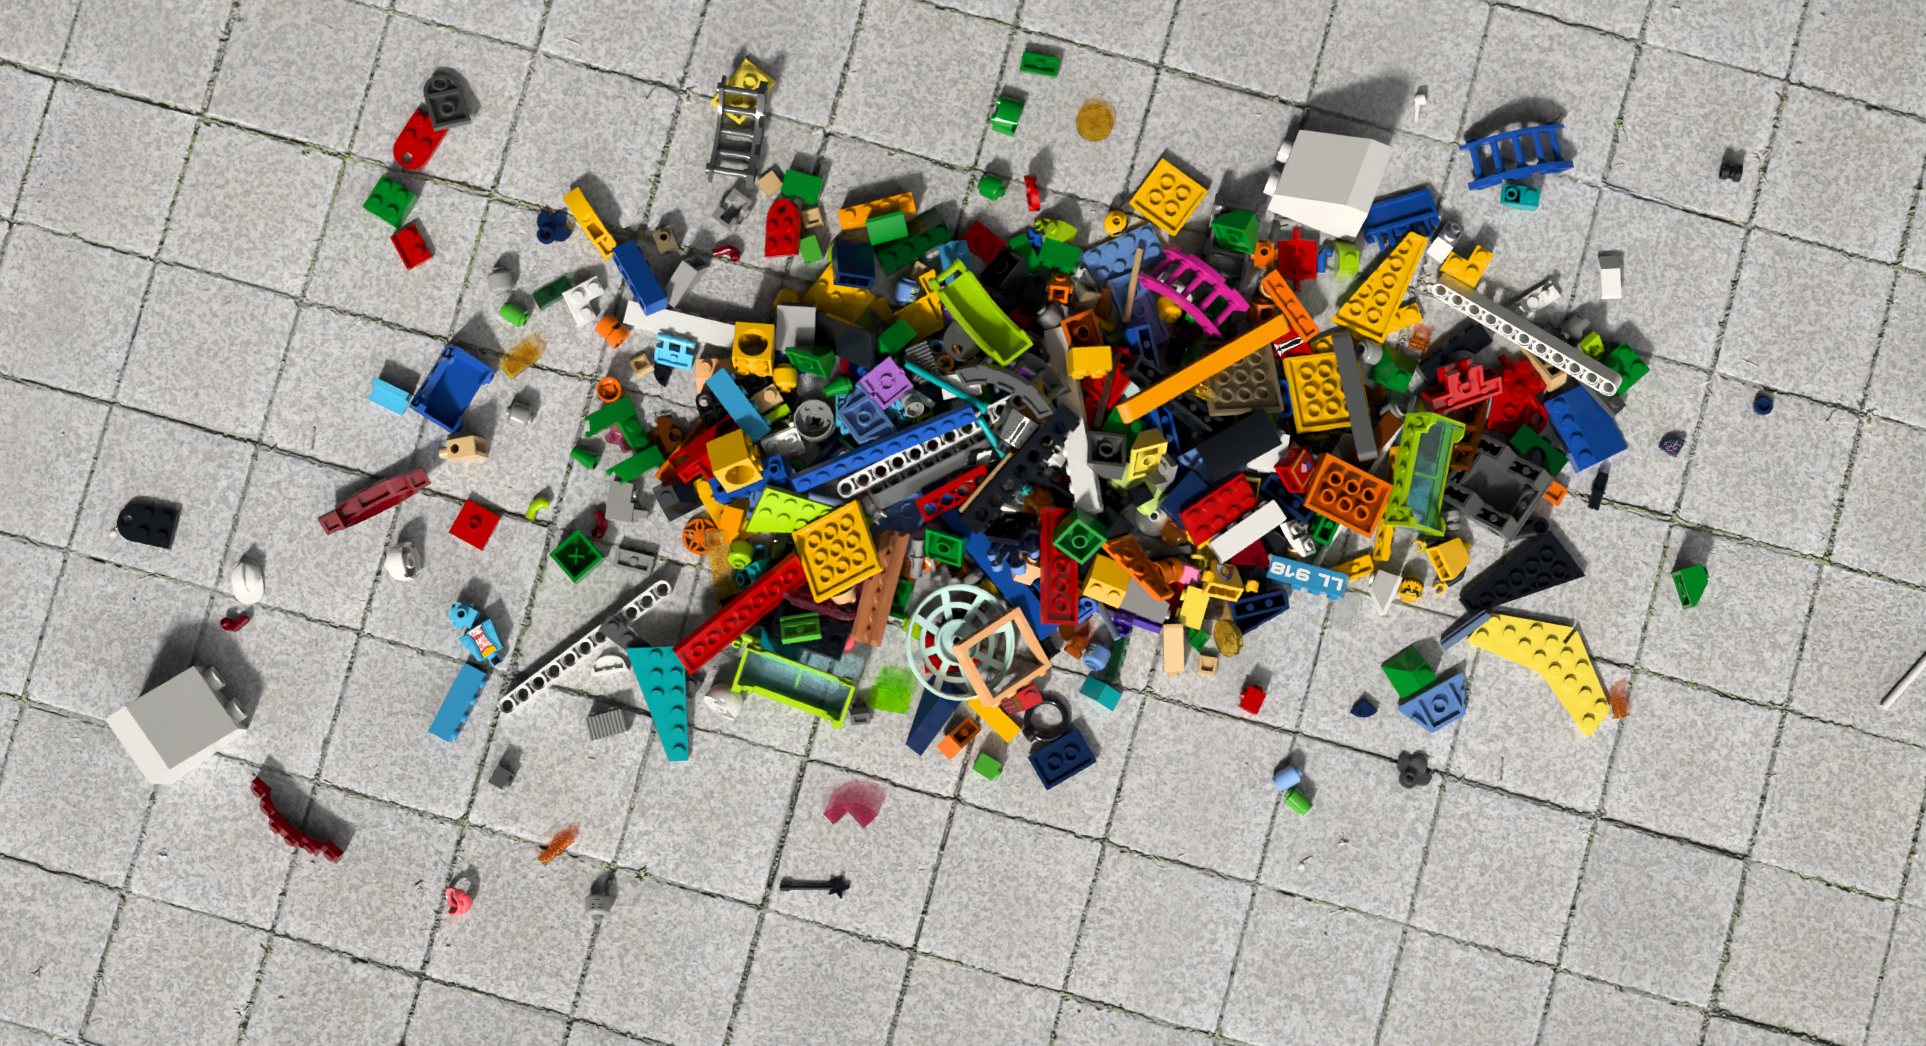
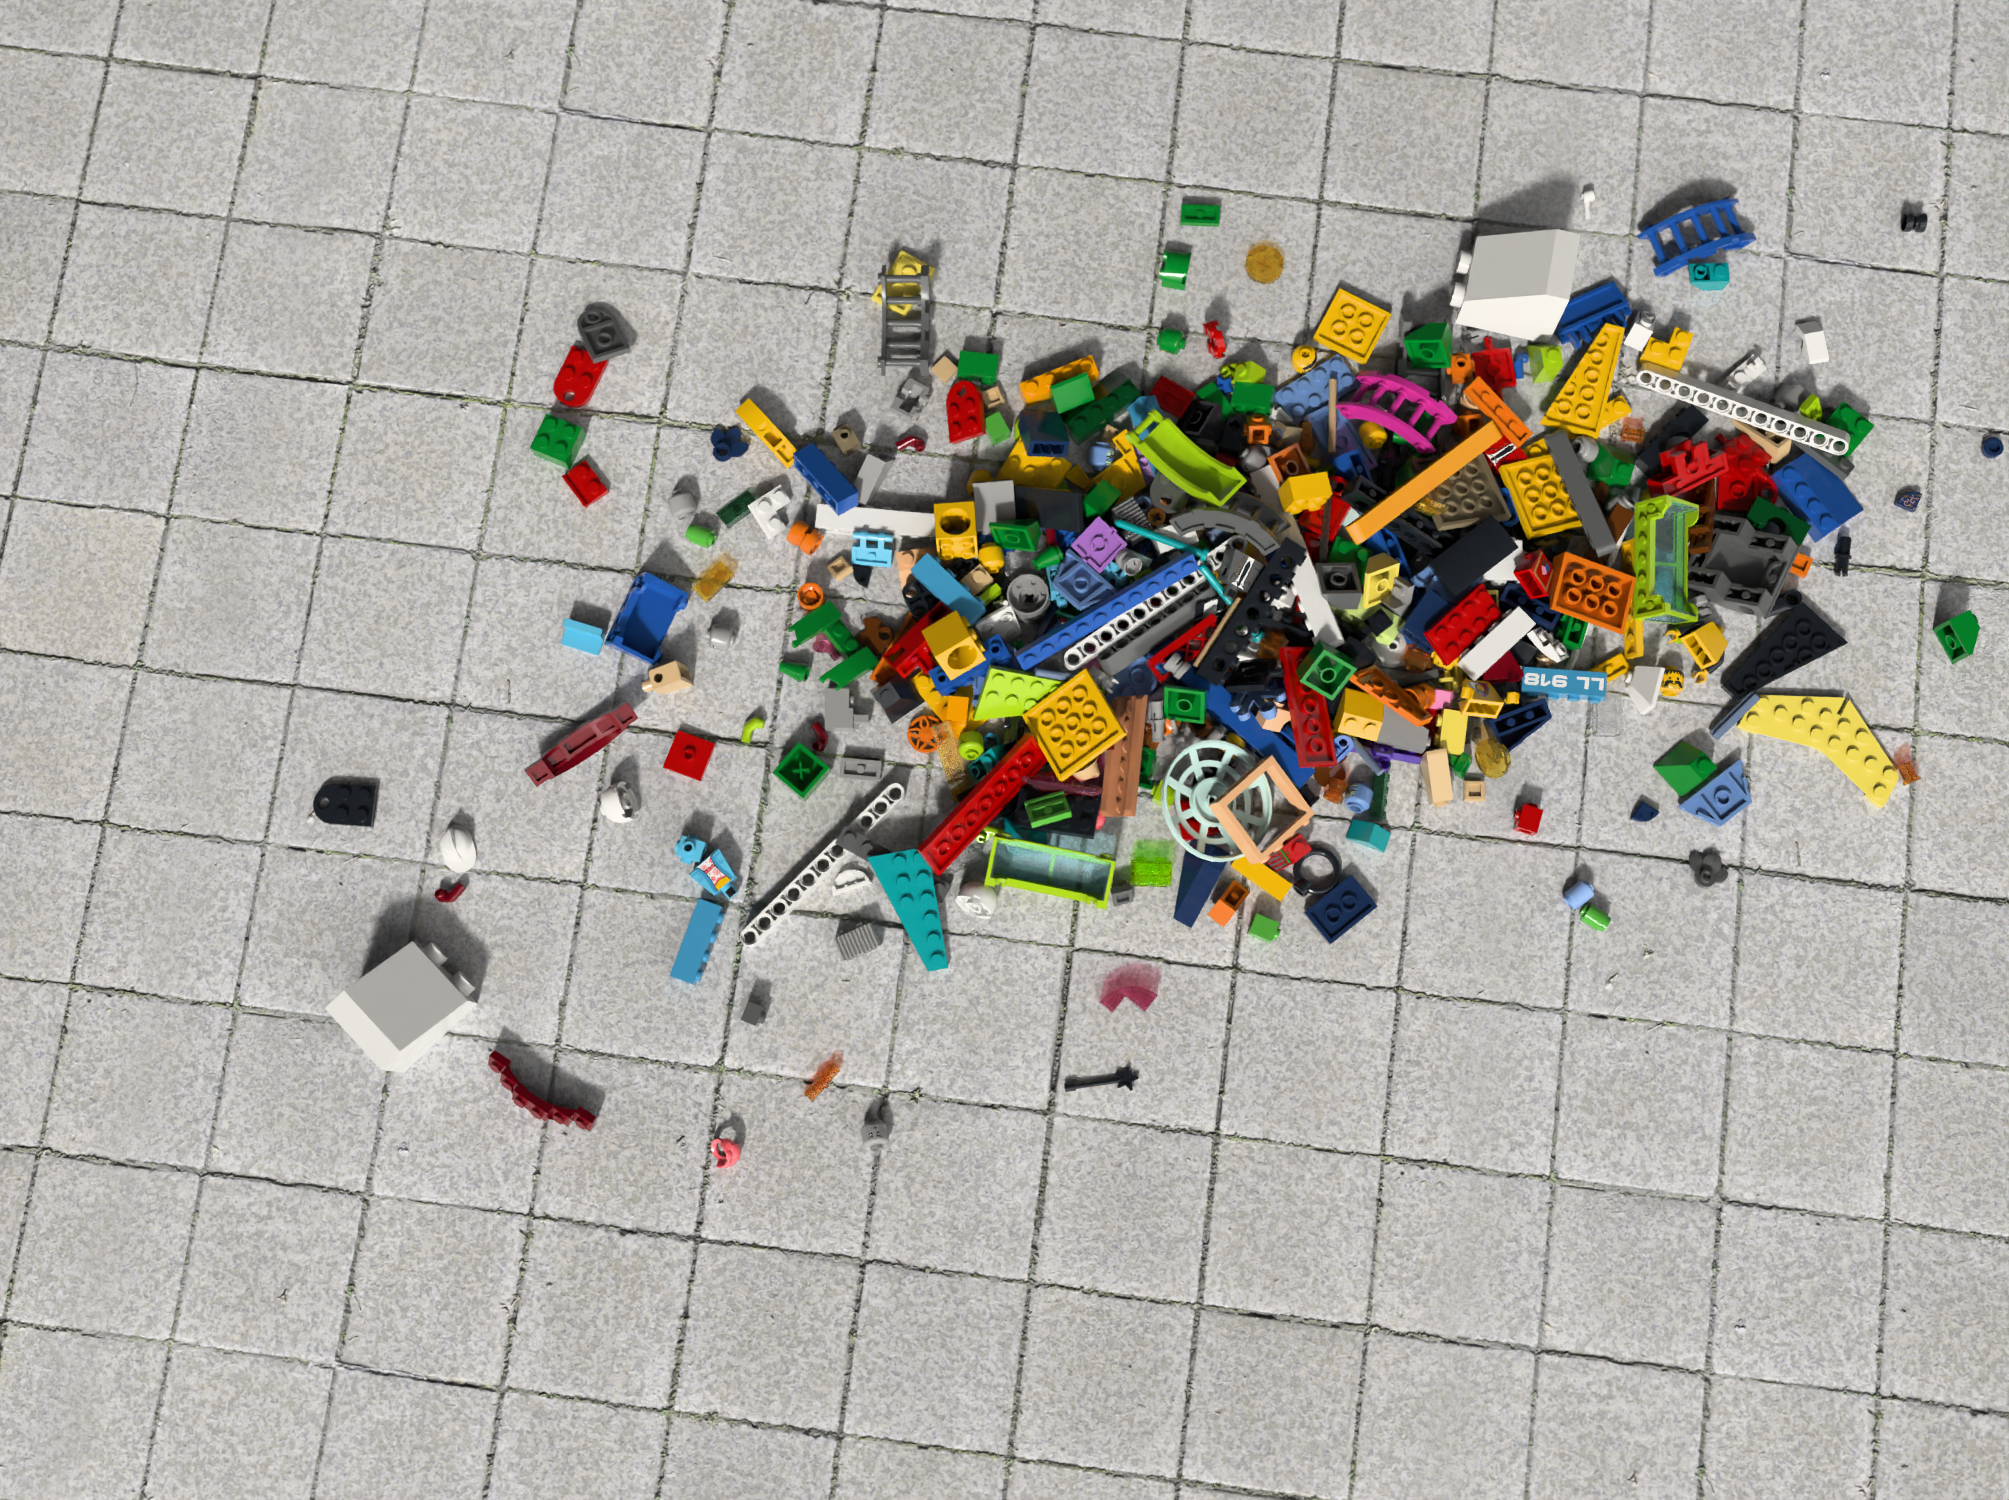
camera: 10 degrees left, 5 degrees down
(942, 510) = (1177, 666): none -> light grey wheel

